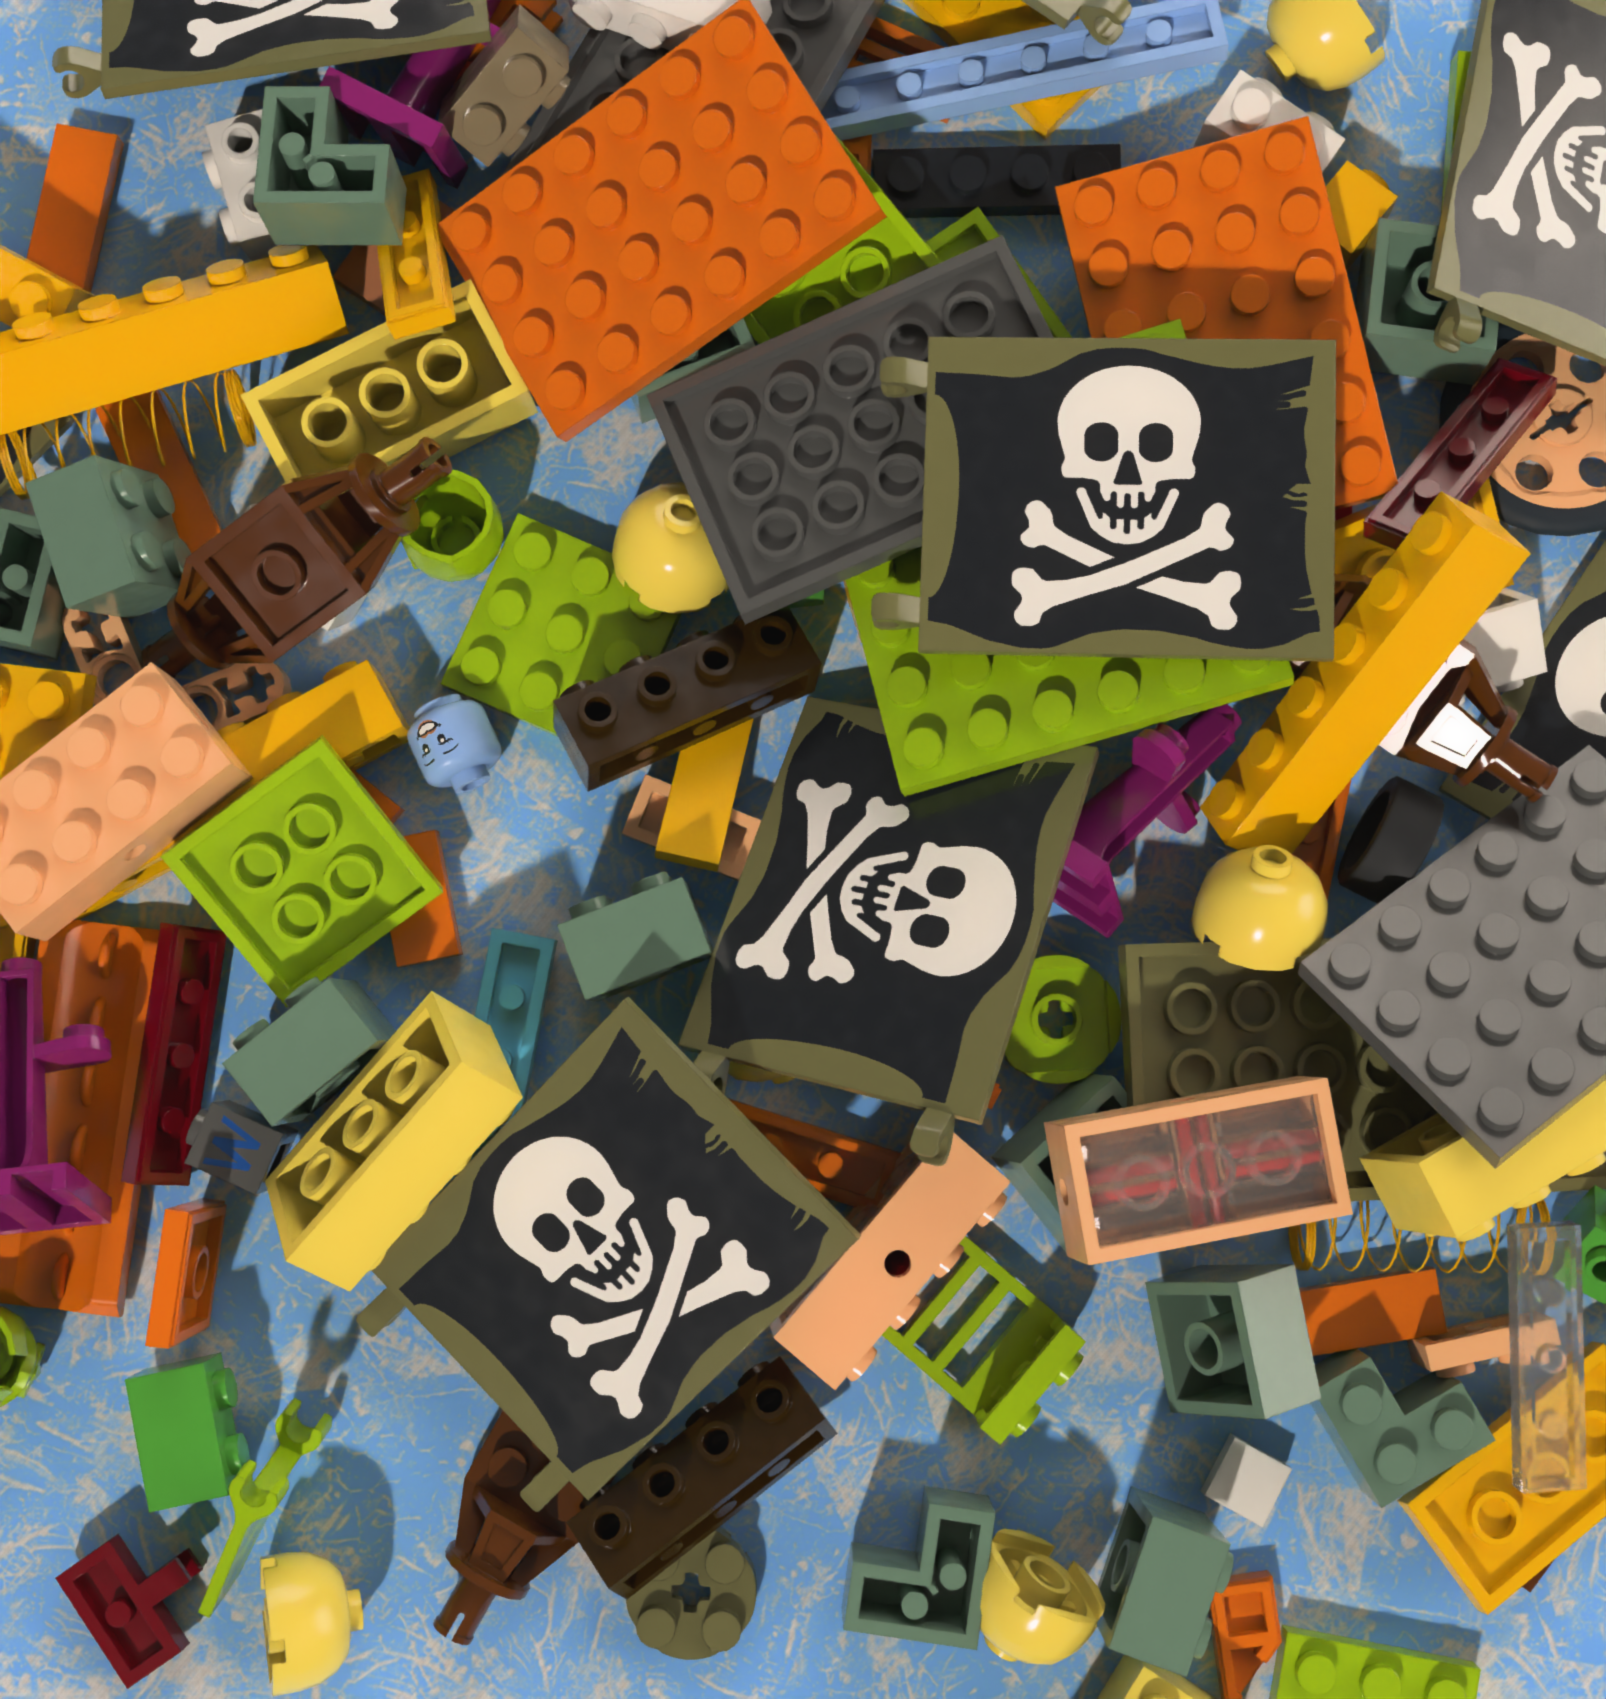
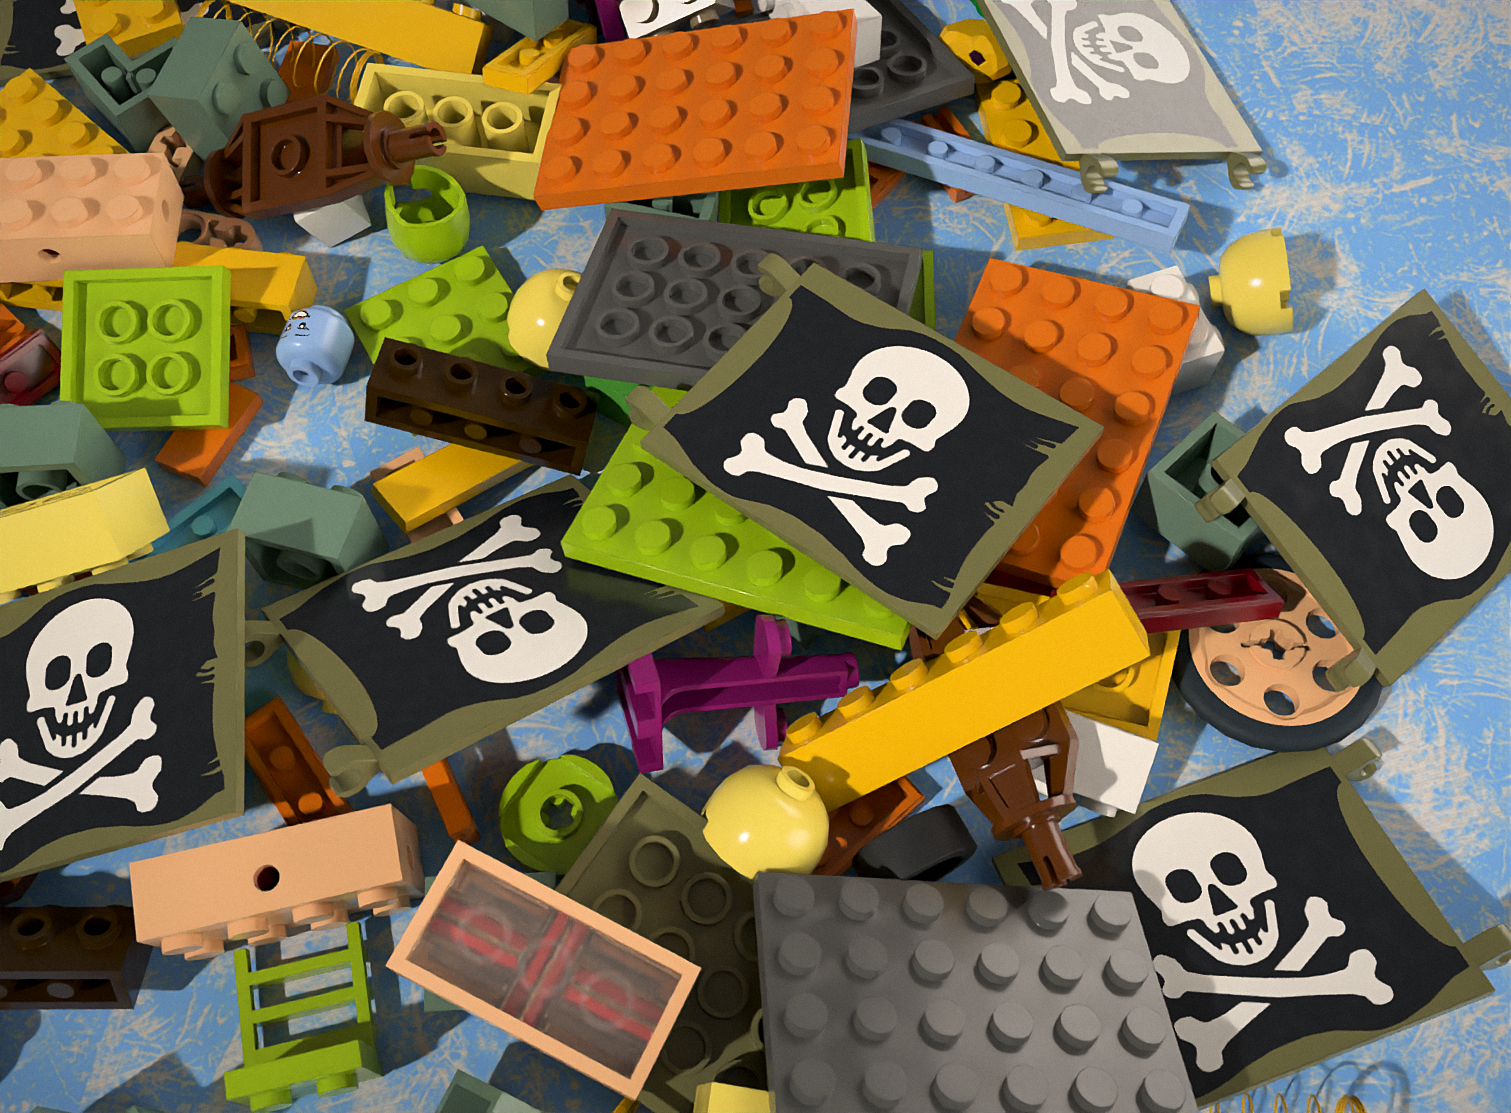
camera: 40 degrees right, 20 degrees down
(991, 178) = (956, 246): black plate -> none
(1356, 205) = (1193, 401): yellow brick -> none

